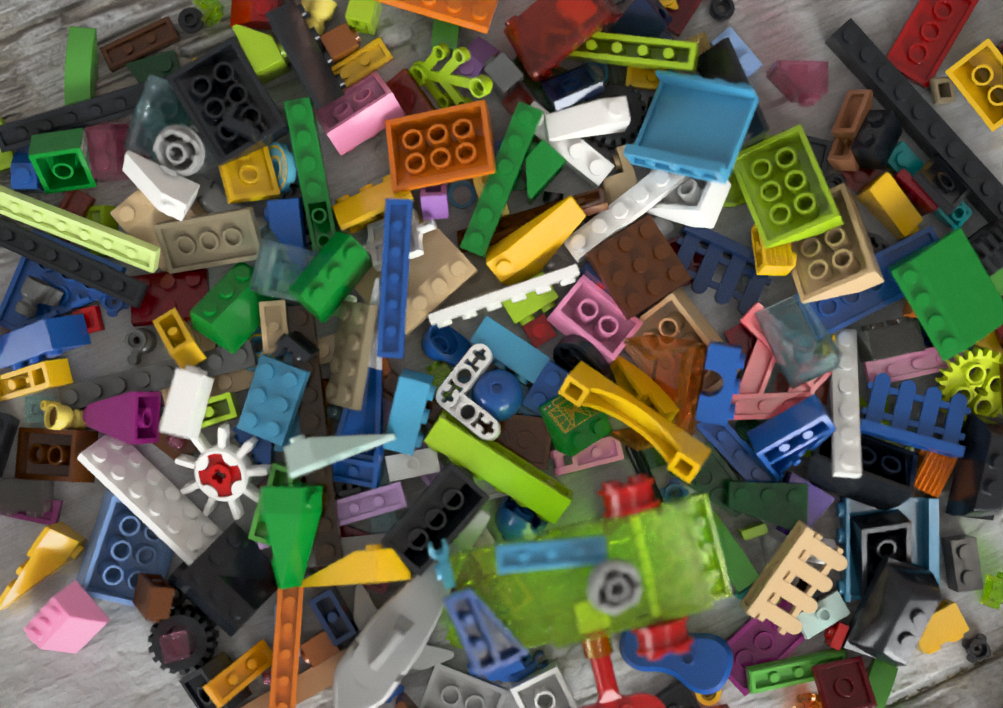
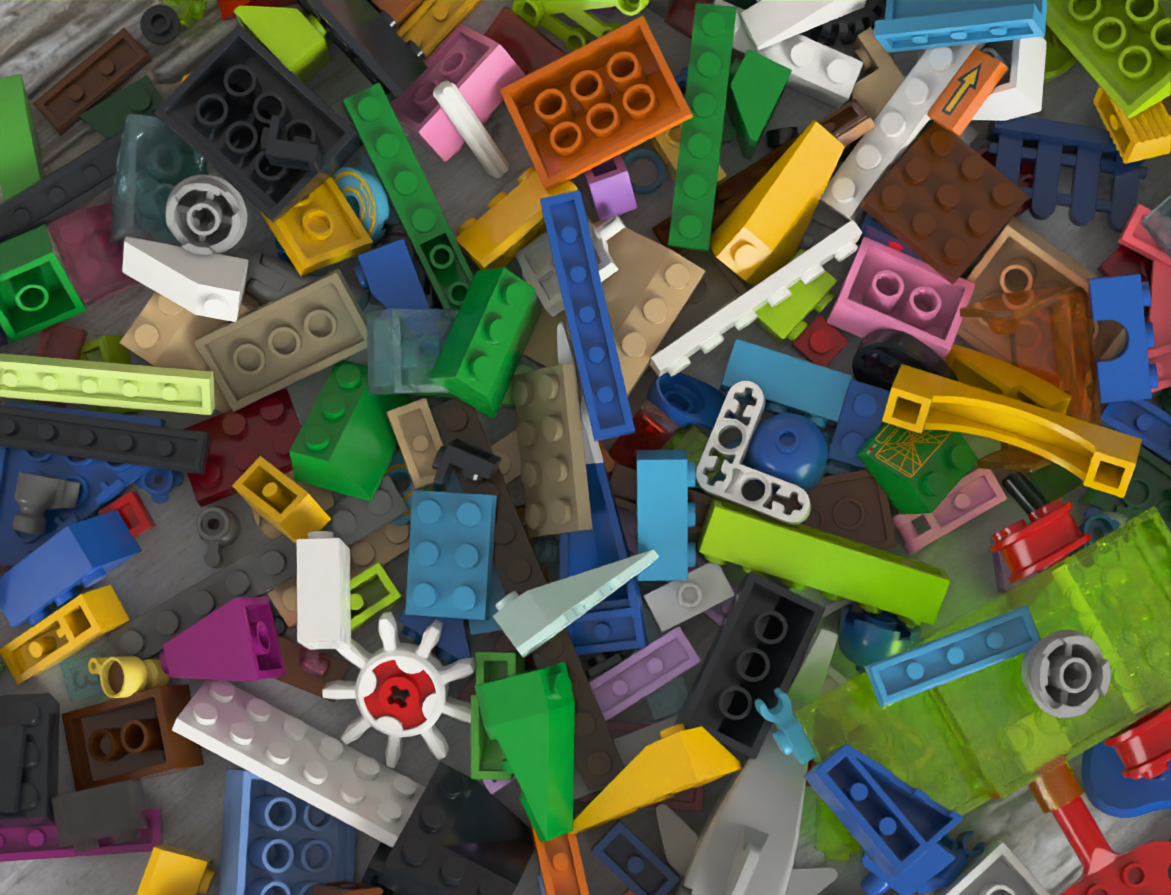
camera: 20 degrees left, 5 degrees down
(360, 140) = (471, 129): none -> white axle
(415, 358) = (652, 432): none -> clear red plate
(670, 203) = (967, 91): none -> orange tile

